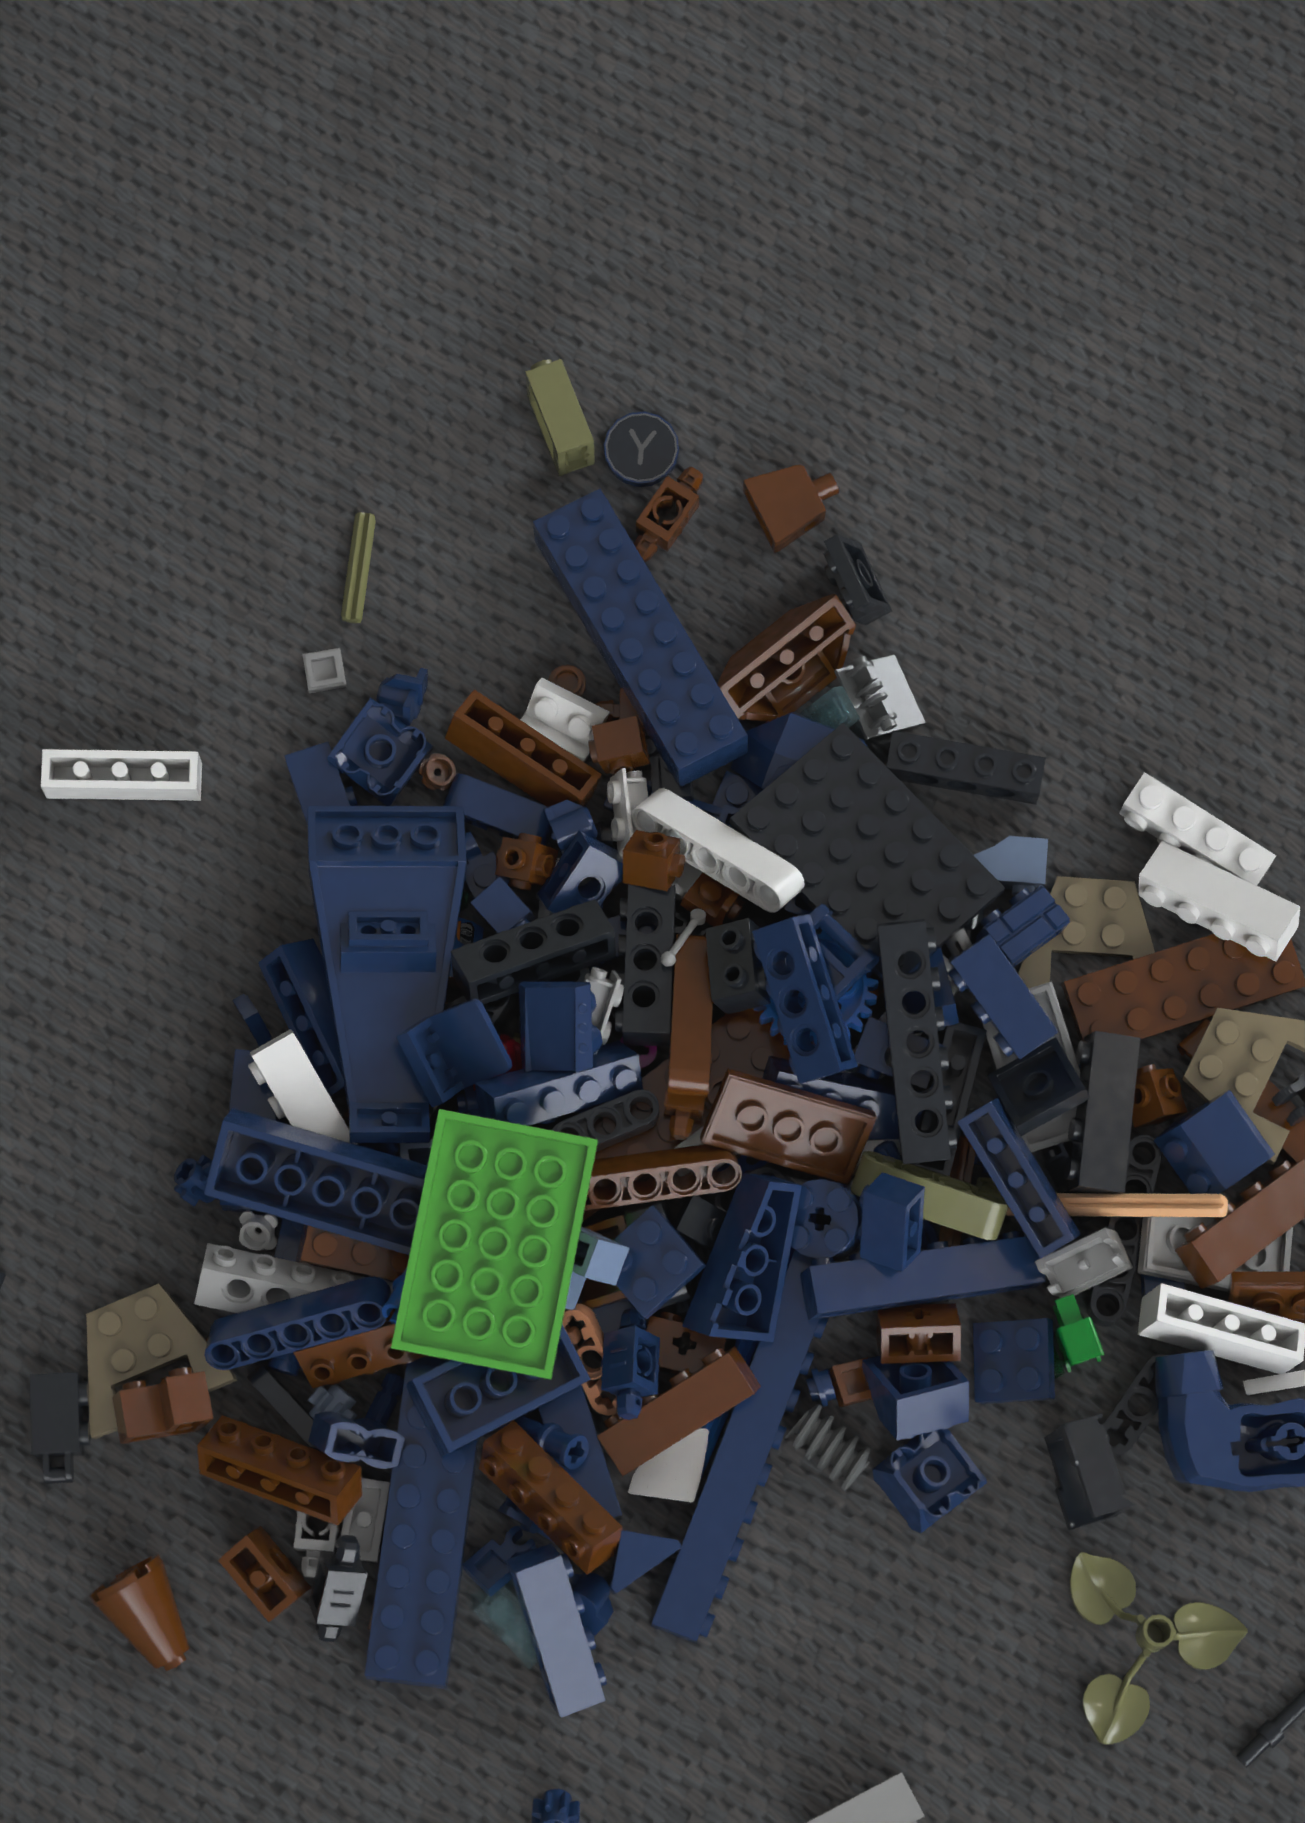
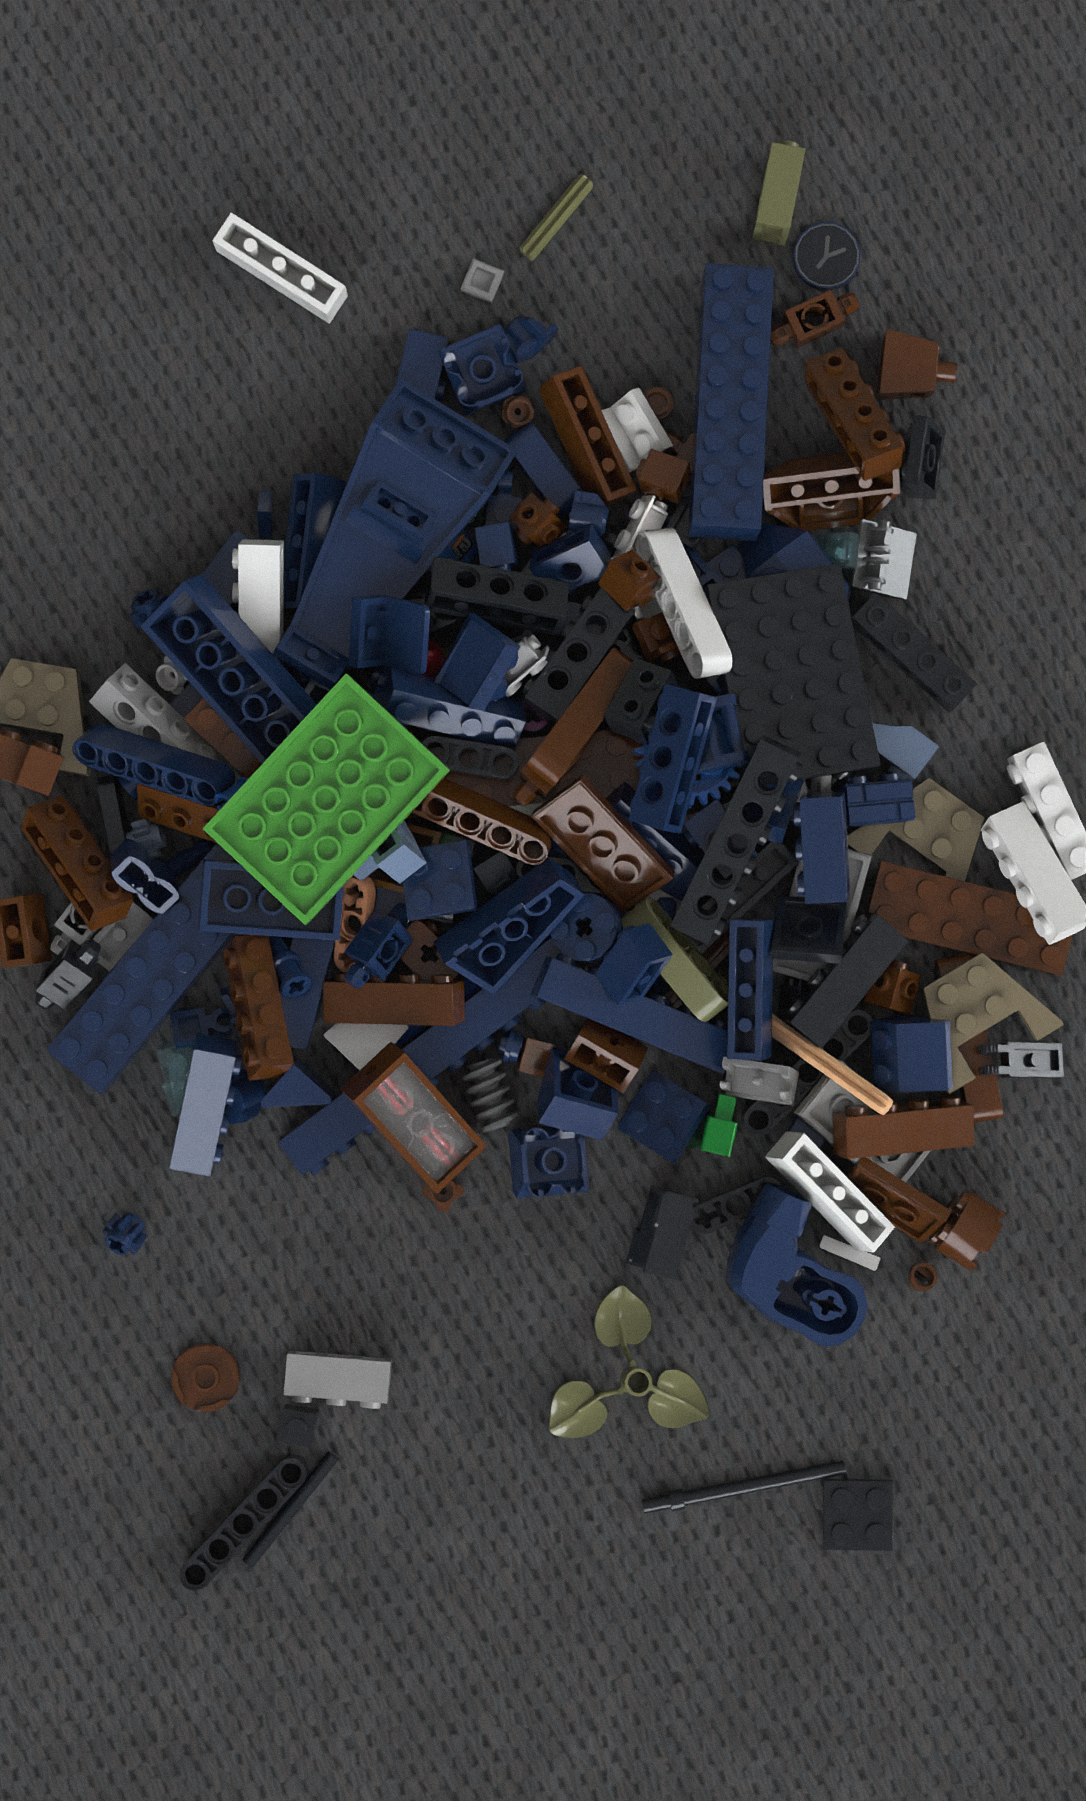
camera: 30 degrees right, 10 degrees up
(697, 917) = (637, 644): light grey hinge -> none
(764, 576) = (854, 414): none -> reddish brown brick
(771, 1511) = (413, 1117): none -> brick
(854, 1566) = (443, 1200): none -> reddish brown plate

